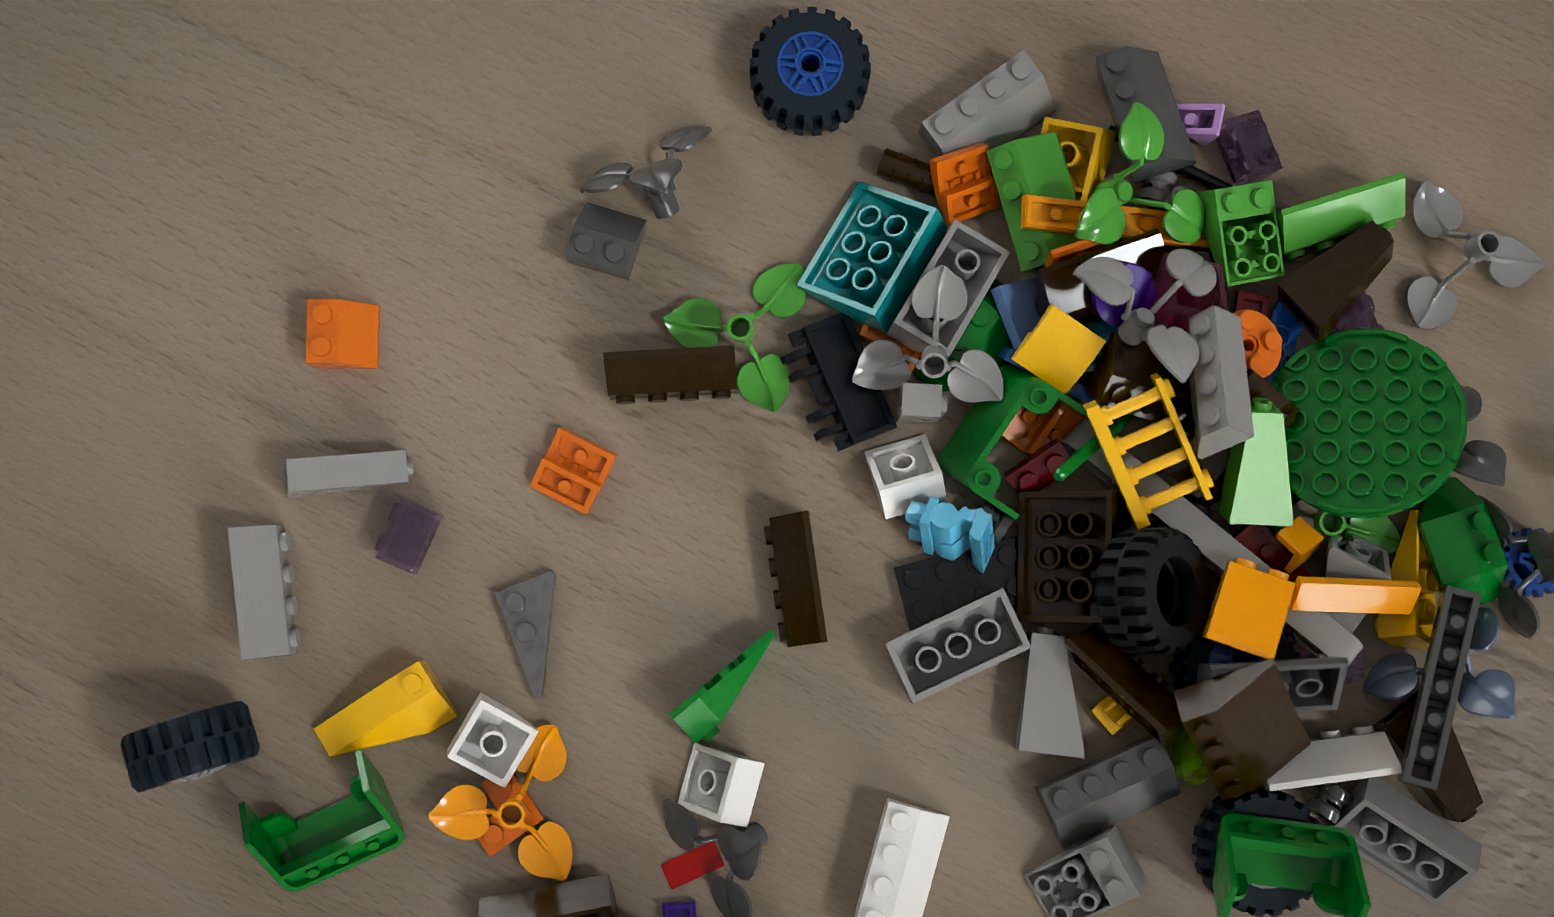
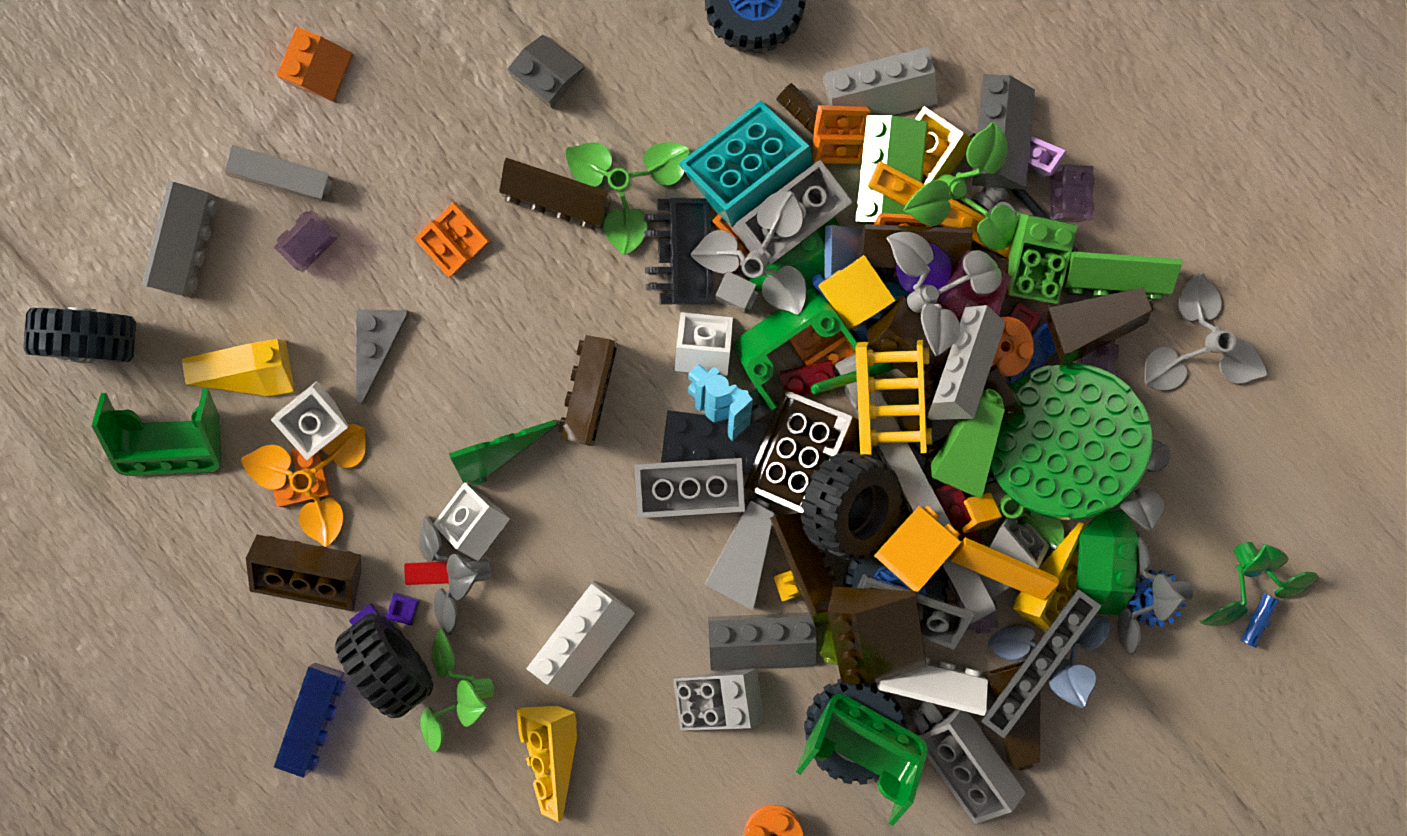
camera: 25 degrees right, 5 degrees up
(656, 178) = (599, 36): dark grey plant -> none

